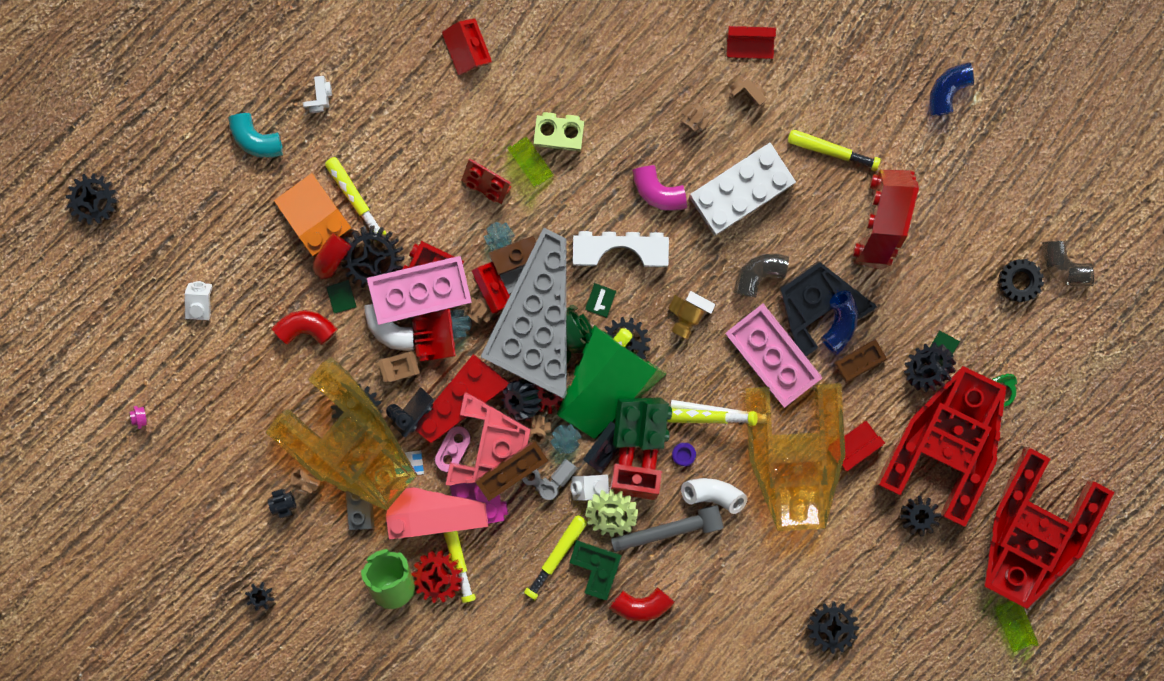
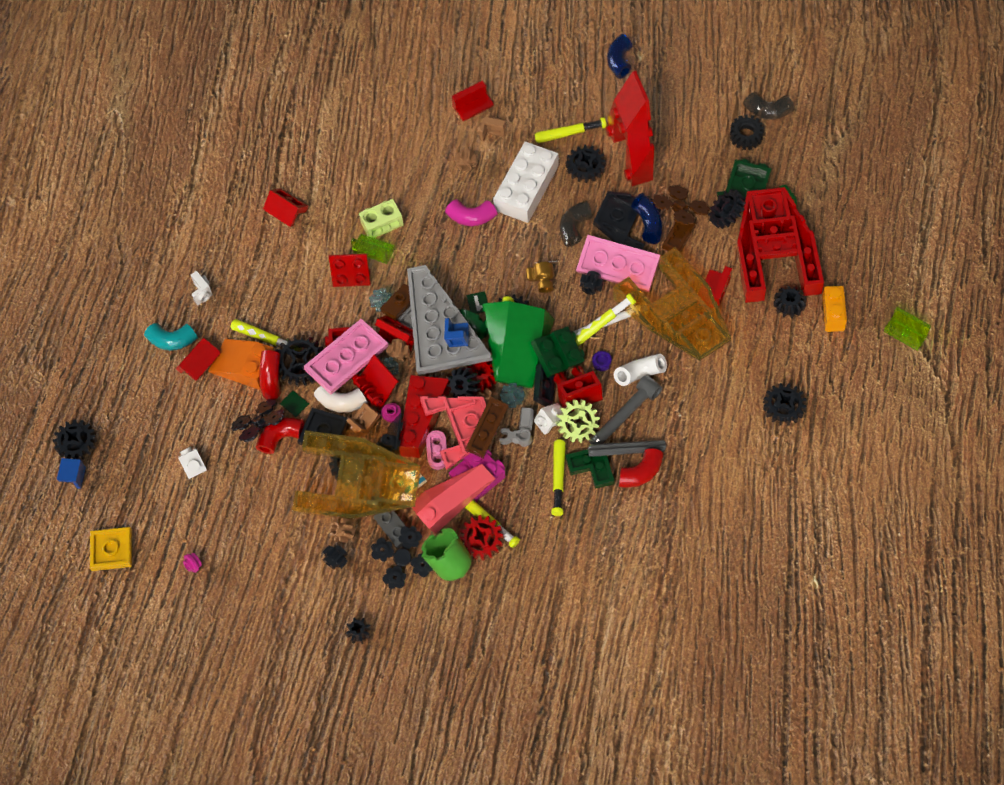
camera: 25 degrees left, 25 degrees down
(66, 348) = (110, 548): none -> yellow plate
(68, 236) = (71, 471): none -> blue panel
(268, 183) = (198, 359): none -> red panel
(289, 302) = (259, 421): none -> black plant
(347, 545) = (401, 557): none -> black plant
(352, 349) = (324, 422): none -> black plate
(440, 375) = (390, 417): none -> dark pink plate
(544, 347) = (456, 334): none -> blue panel
(642, 573) = (625, 447): none -> dark grey axle
(651, 250) = (489, 251): white arch -> none
(730, 359) = (591, 282): none -> black gear
(832, 208) = (587, 164): none -> black gear
(885, 328) = (680, 207): none -> reddish brown plant
(959, 555) = (834, 308): none -> light orange brick
(978, 344) = (748, 177): none -> dark green plate
(1032, 544) = (876, 269): red wedge -> none

